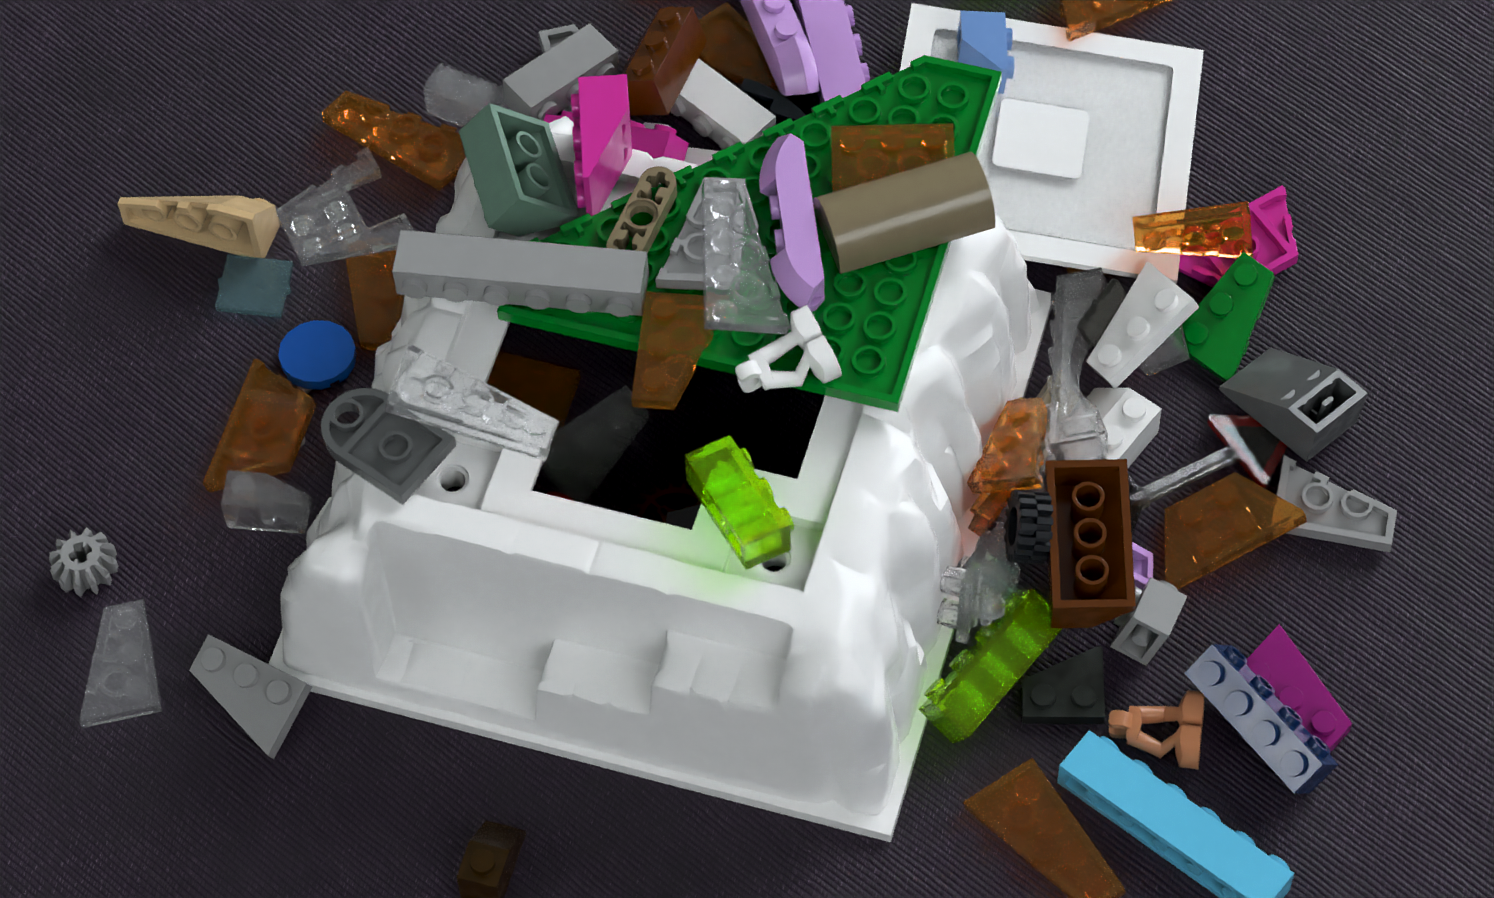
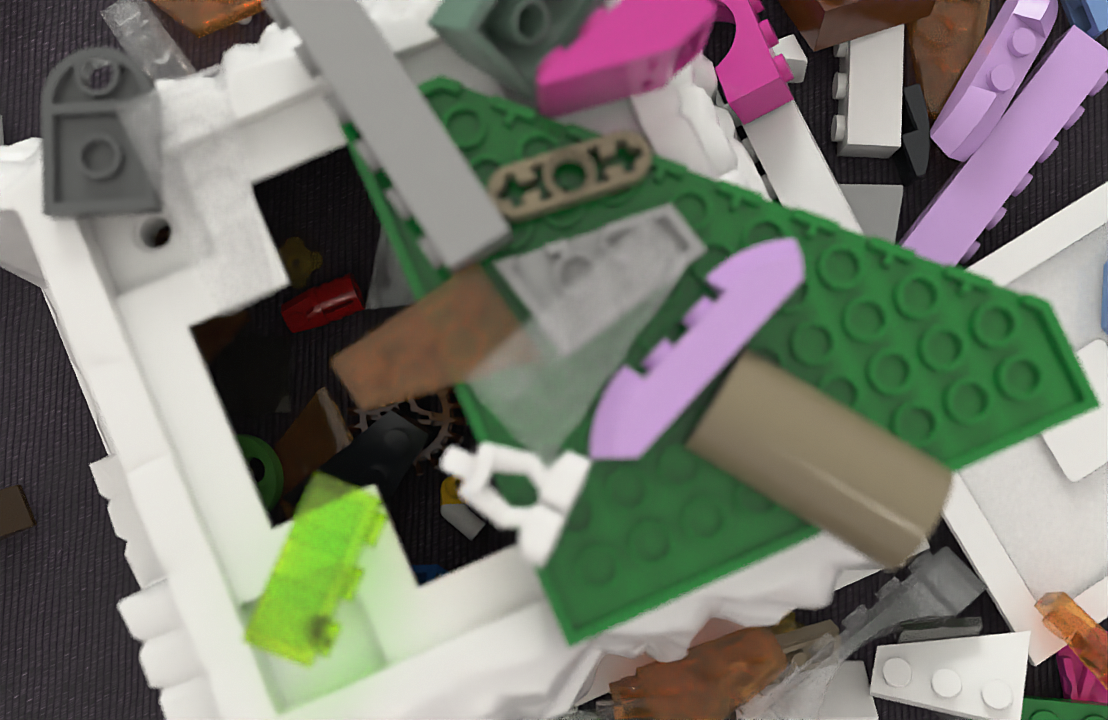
camera: 50 degrees right, 25 degrees up
(878, 151) = (878, 371): clear orange wing -> none

